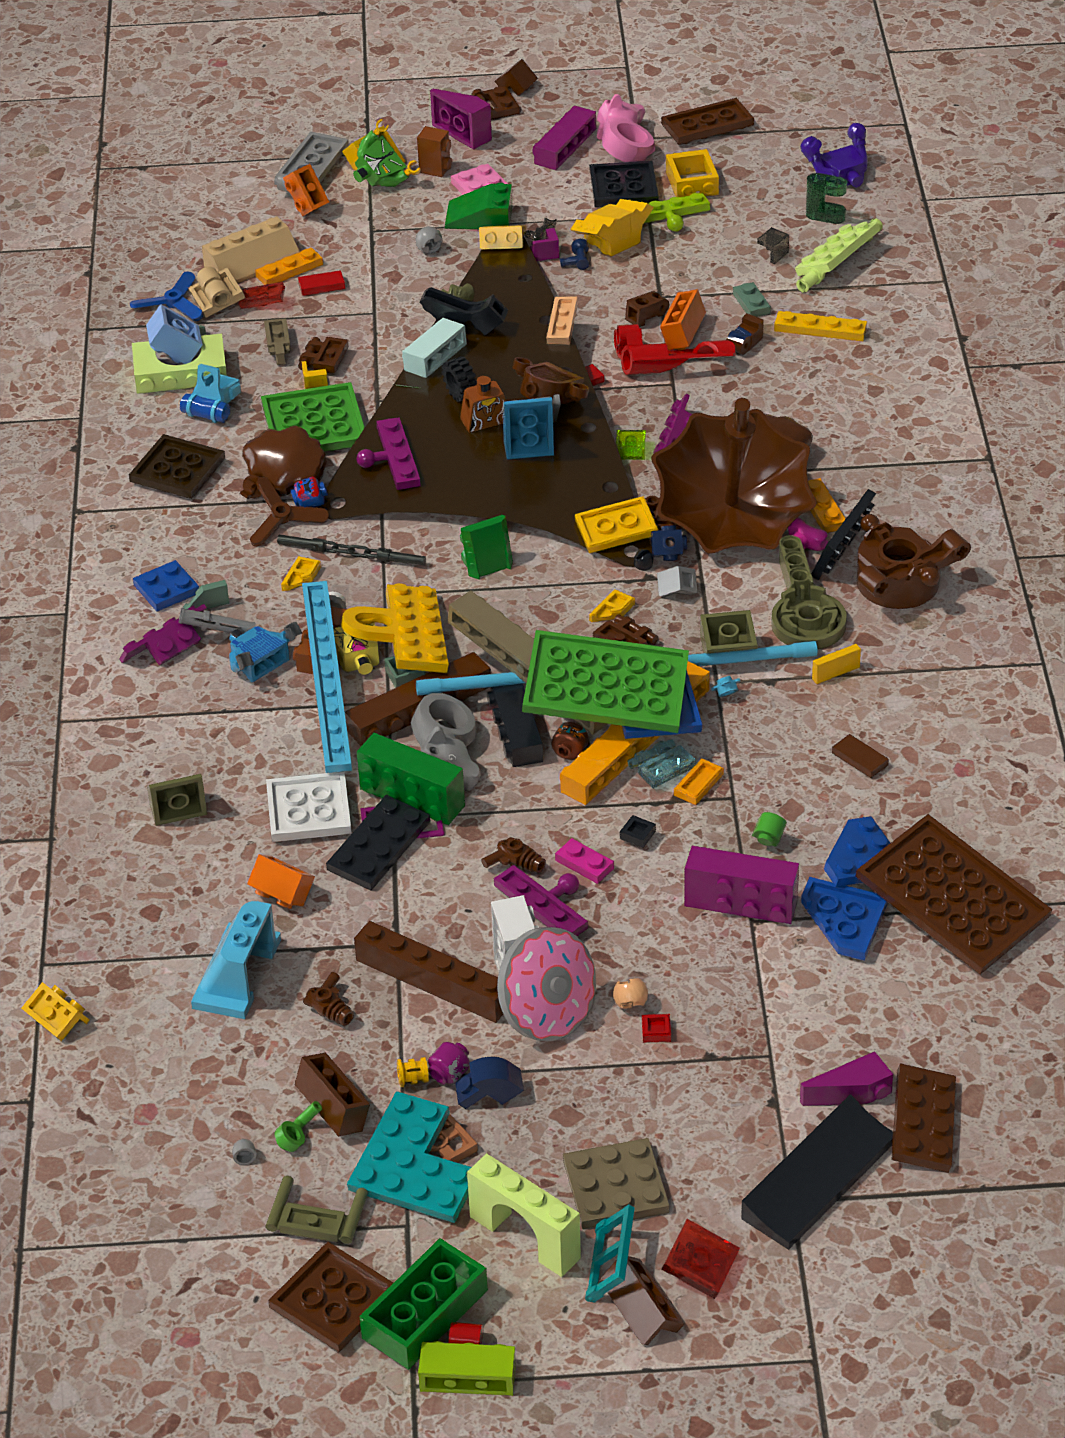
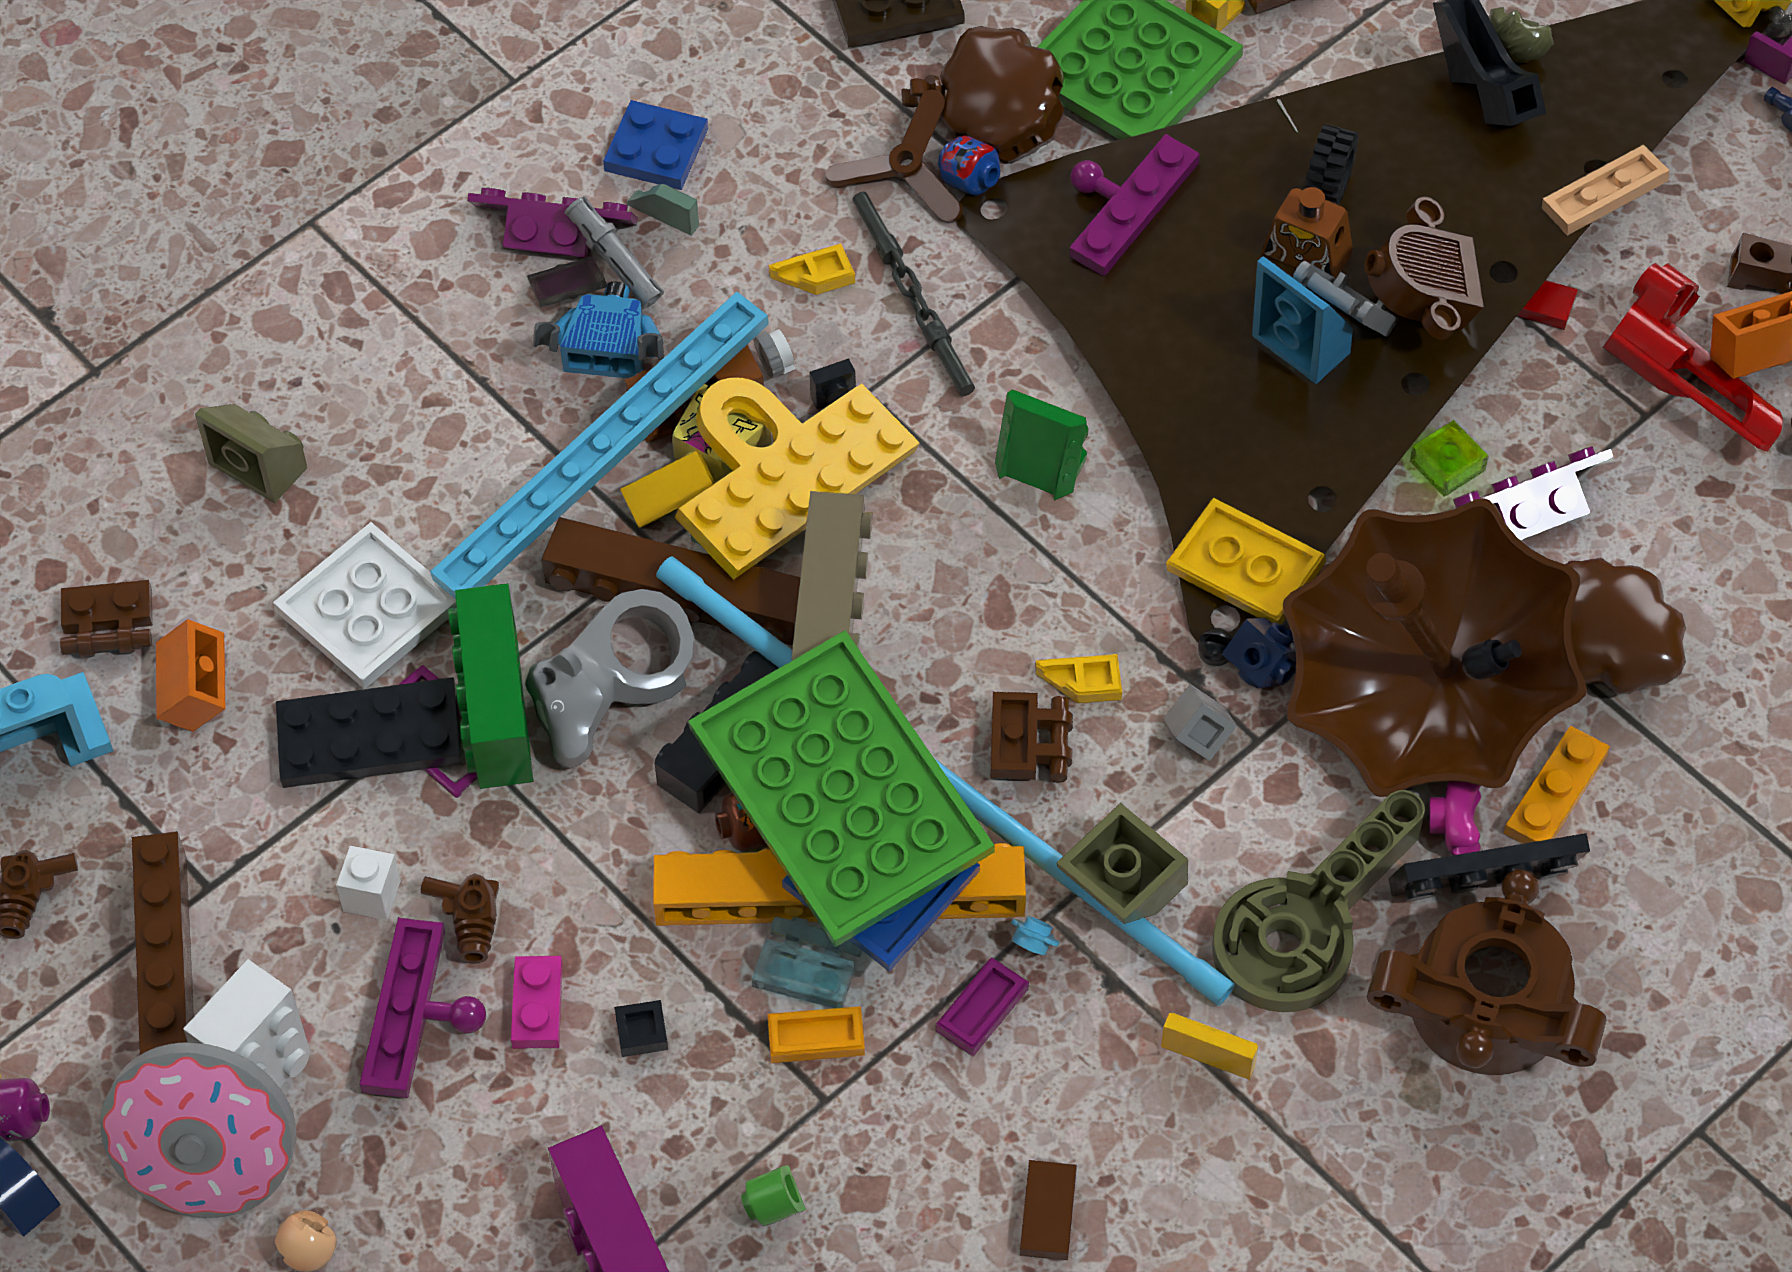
camera: 50 degrees right, 15 degrees up
(199, 899) = (106, 608): none -> reddish brown plate
(211, 648) = (566, 281): none -> clear smoke piece
(368, 673) = (667, 488): none -> yellow tile
(373, 595) = (831, 382): none -> black plate
(434, 347) = (1385, 87): light aqua brick -> none
(464, 878) = (368, 882): none -> white brick
(740, 724) = (982, 1006): none -> magenta tile
(752, 473) = (1489, 658): none -> black cylinder

